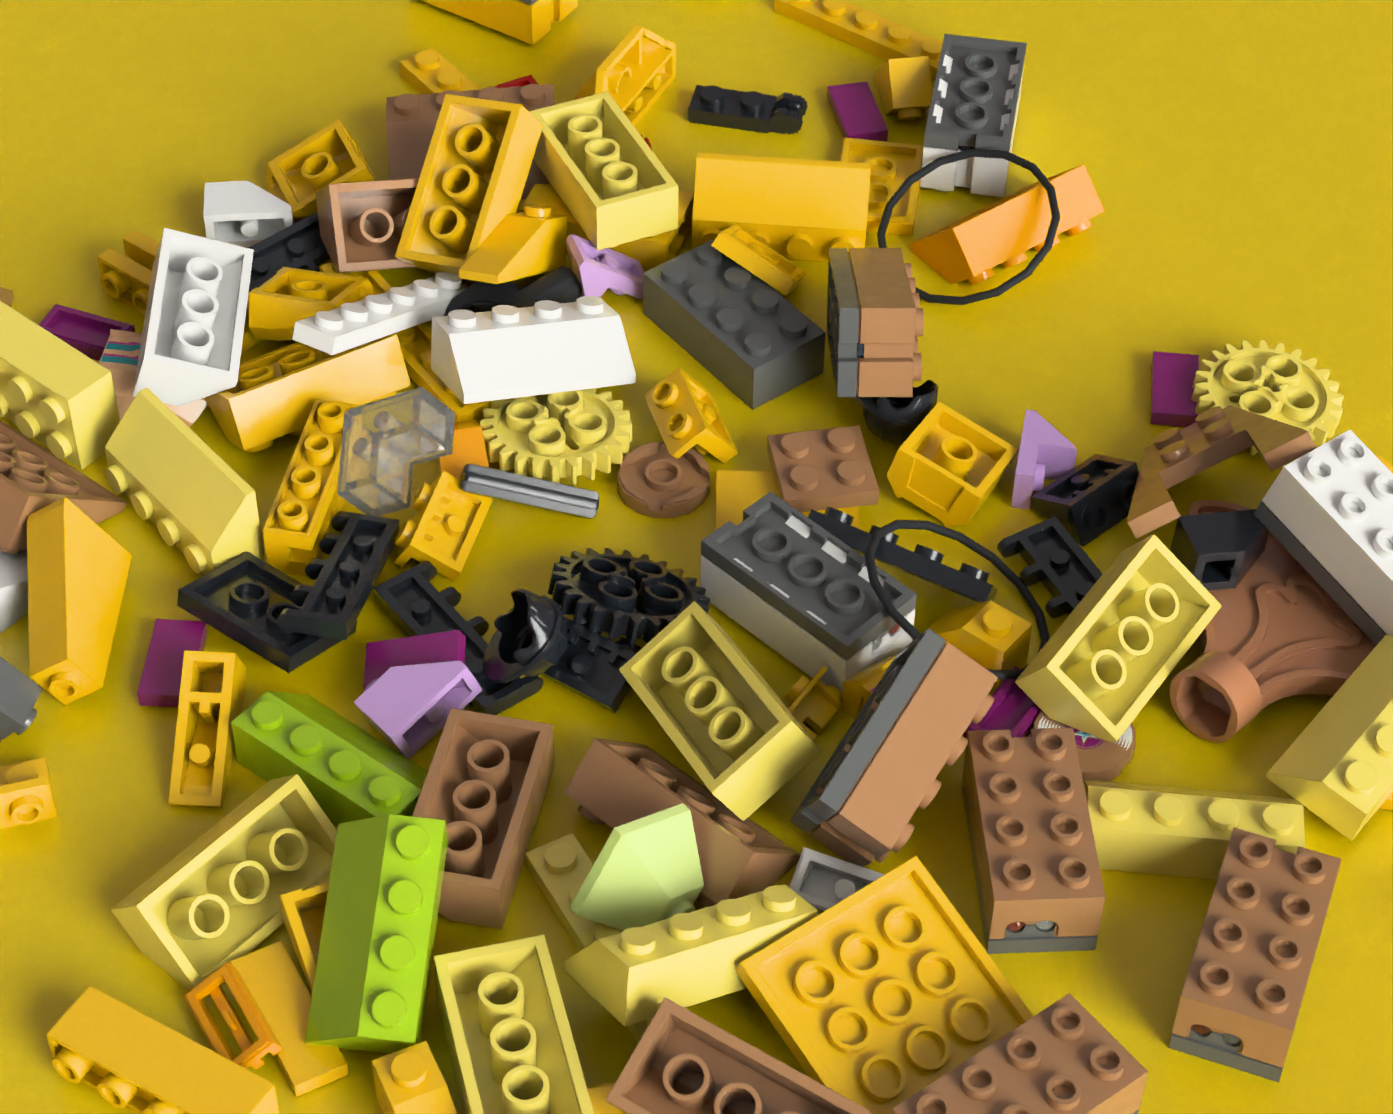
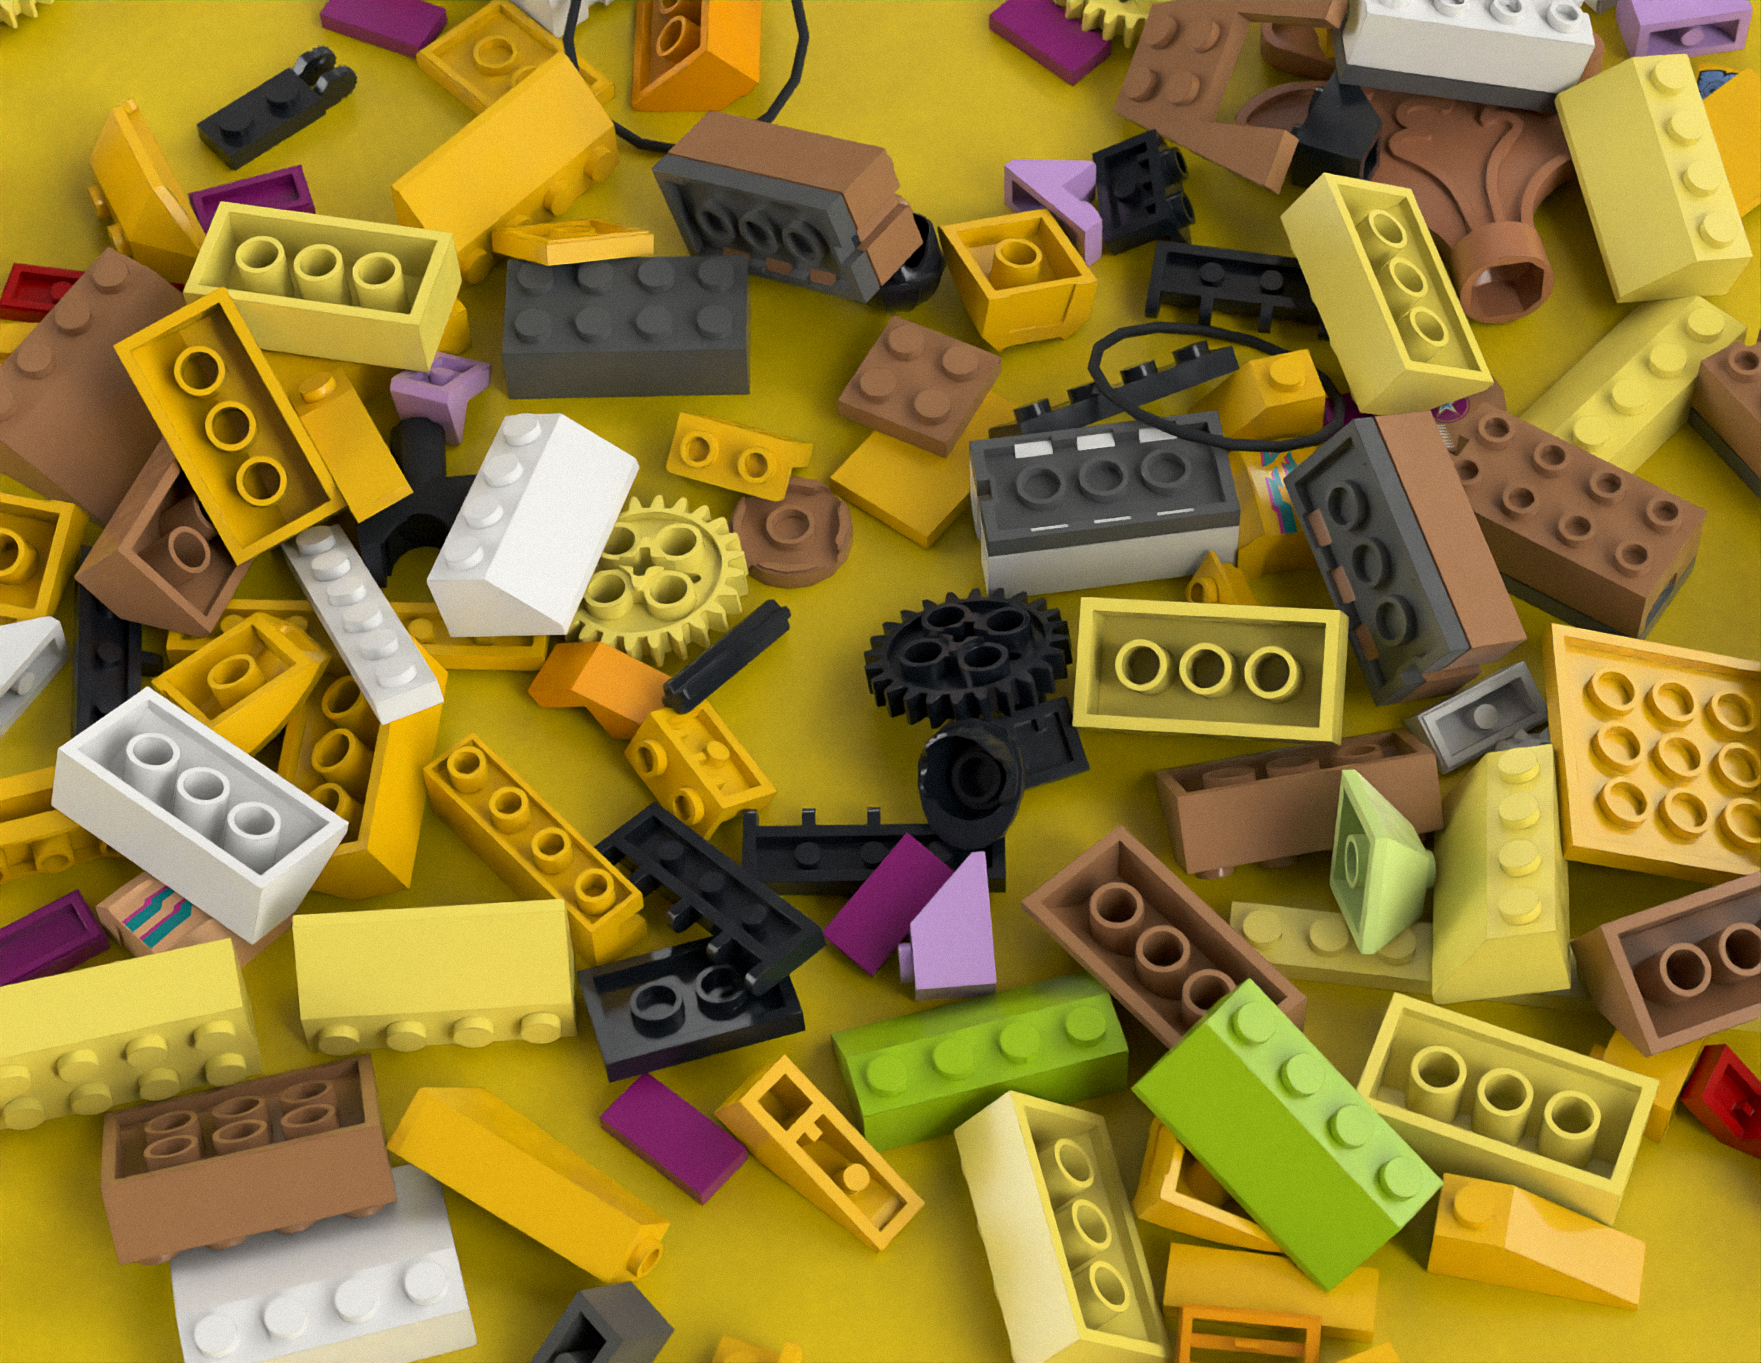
camera: 50 degrees left, 10 degrees up
(385, 443) = (554, 746): clear brick -> none
(672, 140) = (278, 190): none -> magenta tile

